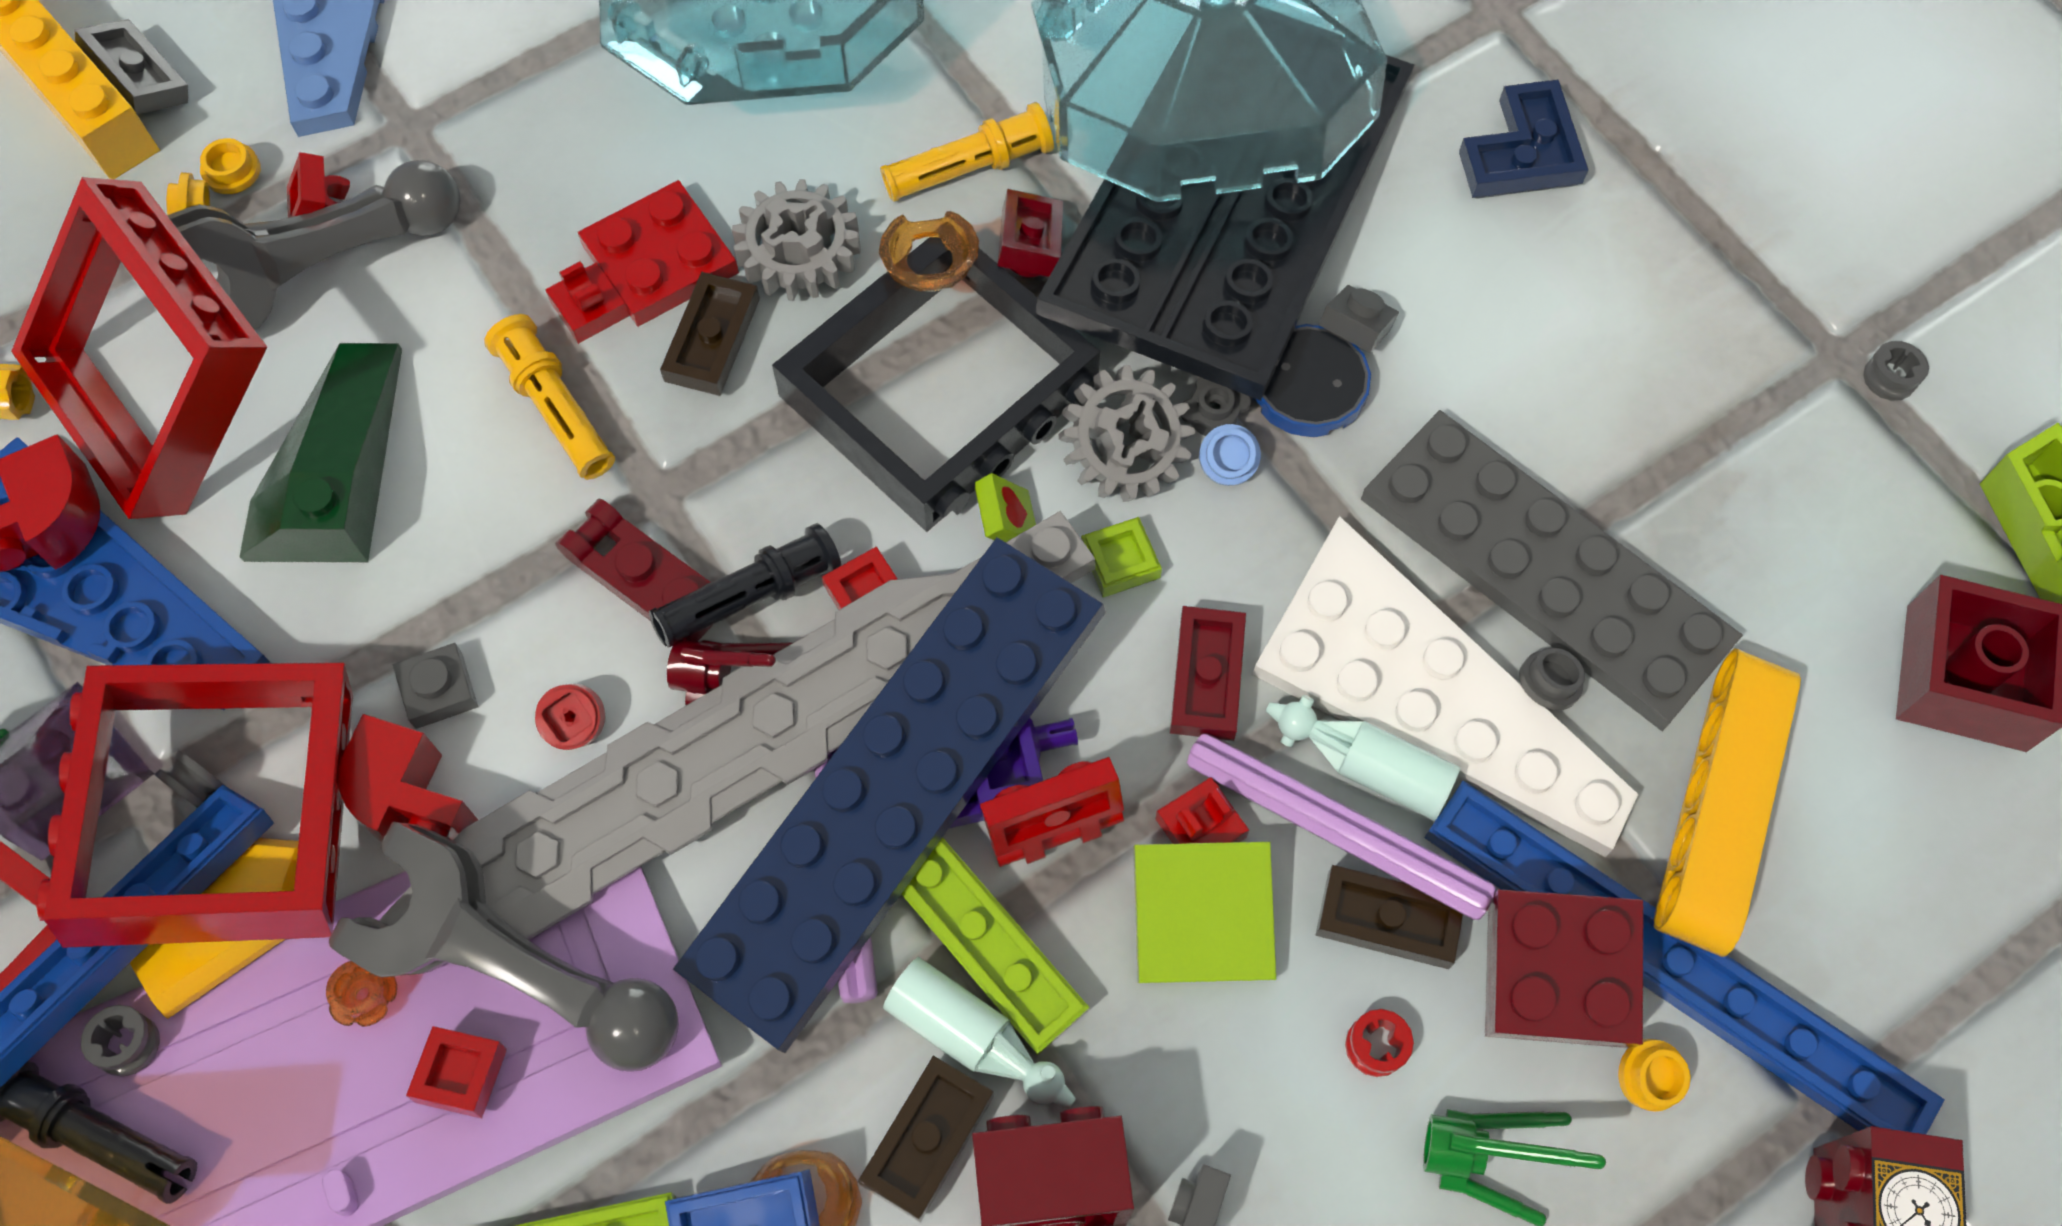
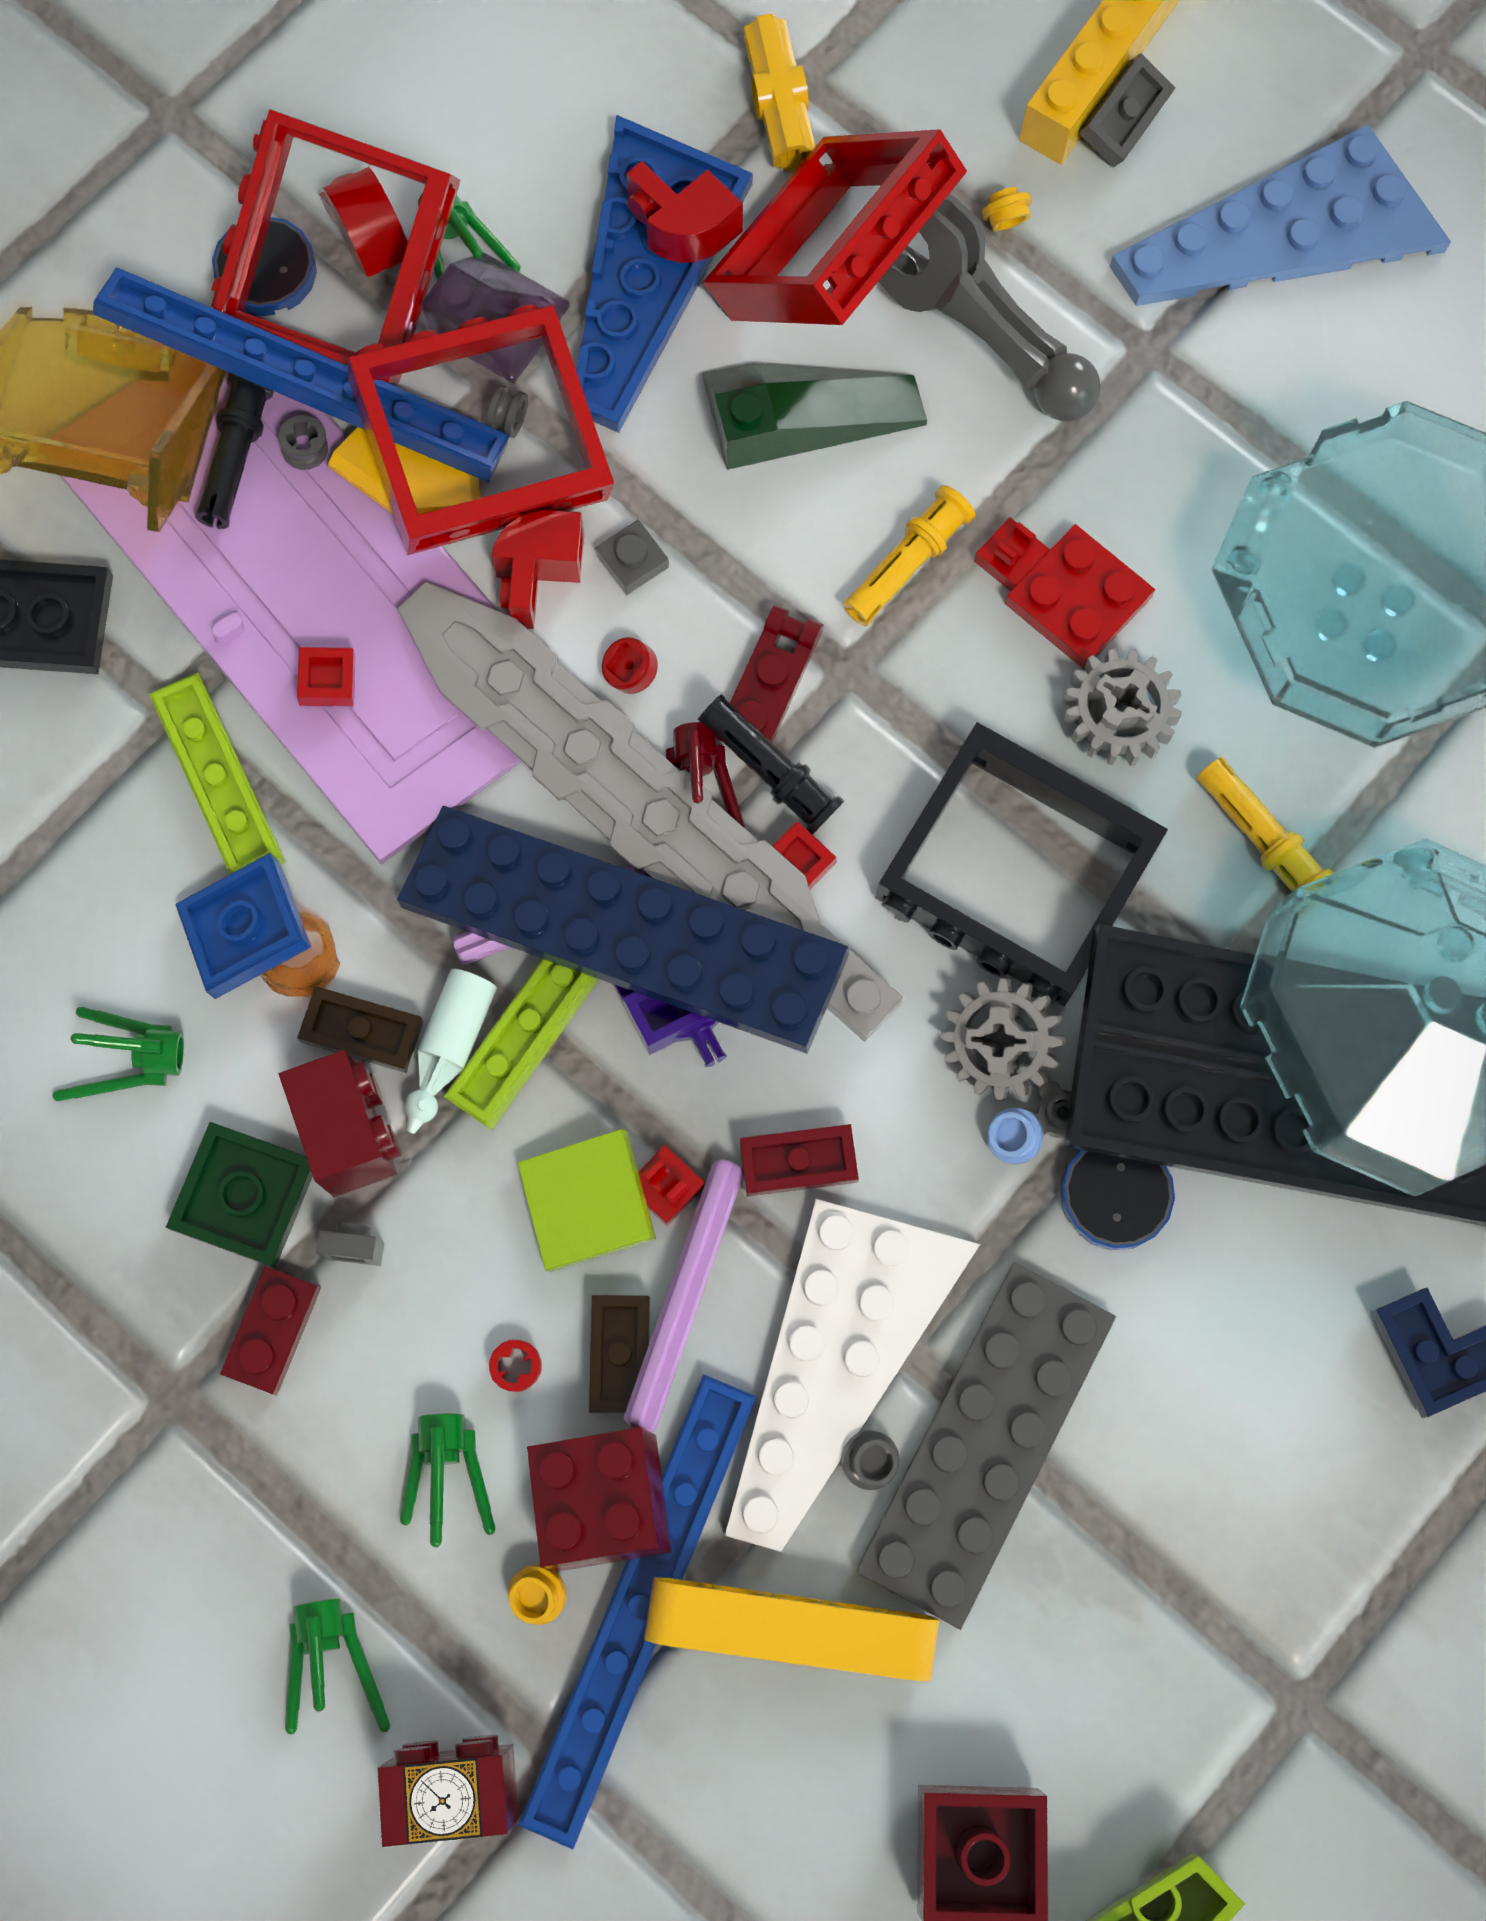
camera: 75 degrees right, 10 degrees up
(229, 166) = (1054, 225): yellow plate -> none
(310, 188) = (1046, 297): red tile -> none
(343, 990) = (368, 578): clear orange plate -> none
(448, 922) = (424, 646): dark grey piece -> none
(710, 334) = (1007, 664): dark brown plate -> none
(955, 234) = (1127, 791): clear orange piece -> none
(1003, 507) = (901, 955): lime tile -> none
(1030, 234) = (1187, 905): dark red plate -> none
(1041, 816) = (620, 1045): red plate -> none
(1122, 557) = (892, 1064): lime tile -> none
(1359, 317) = (1192, 1224): dark grey plate -> none
(1371, 757) = (755, 1314): light aqua wheel -> none
(1890, 385) = (1289, 1776): dark grey bush -> none

